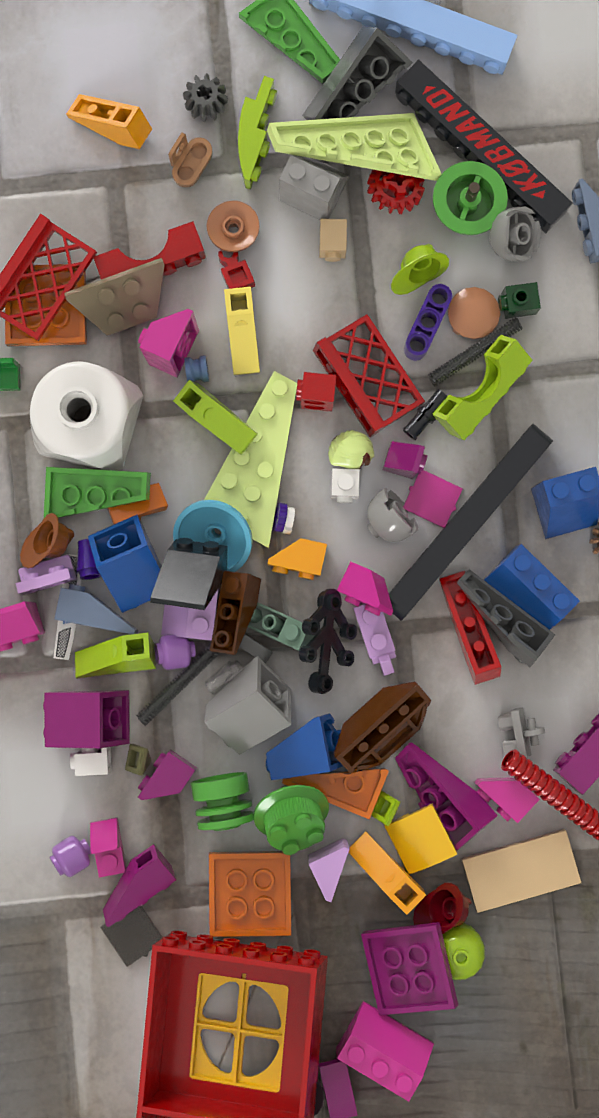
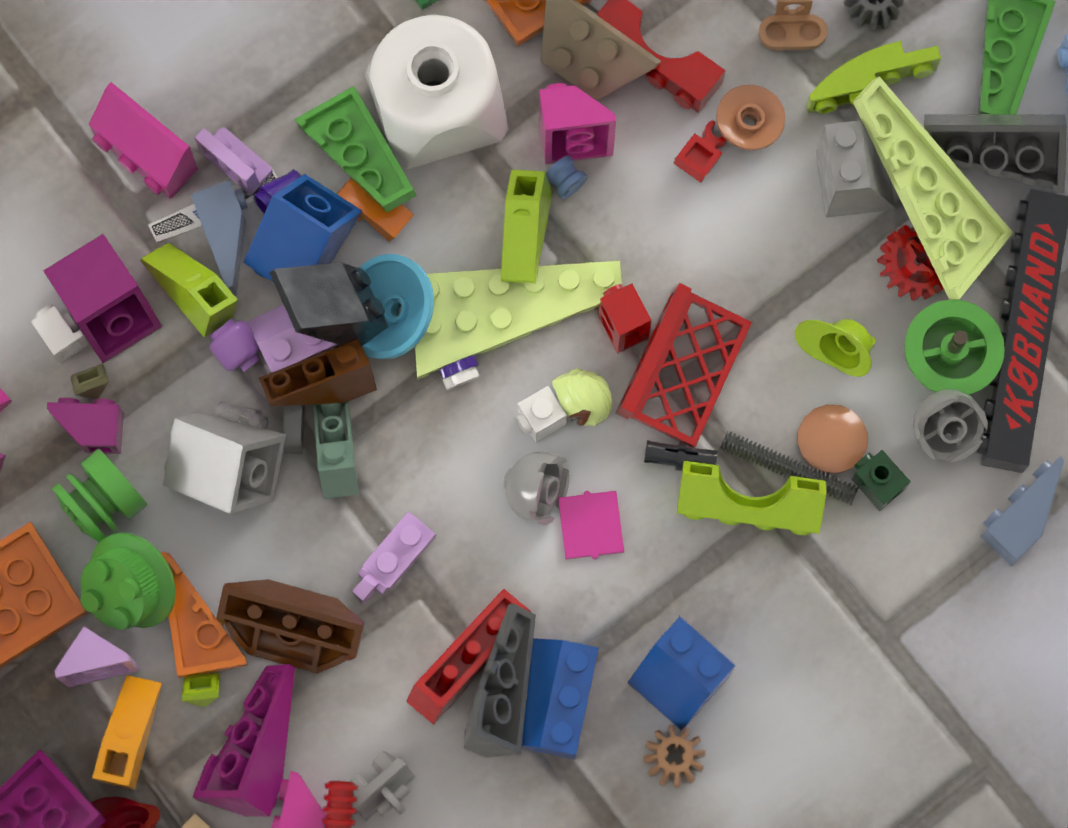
camera: 60 degrees right, 10 degrees down
(45, 541) = (272, 137): dark orange piece -> none
(177, 686) = (198, 374): dark grey axle -> none
(242, 330) = (641, 197): light yellow slope -> none
(301, 556) = (429, 418): light orange slope -> none
(306, 750) = (213, 552): blue slope -> none
(329, 608) = (354, 498): black plant -> none
(333, 239) = (809, 232): tan brick -> none
(365, 587) = (438, 508): dark pink slope -> none
(405, 459) = (611, 462): magenta slope -> none
(421, 839) = (190, 749): yellow slope -> none
(431, 310) = (799, 382): dark purple beam -> none
(468, 520) = (588, 577): black beam -> none

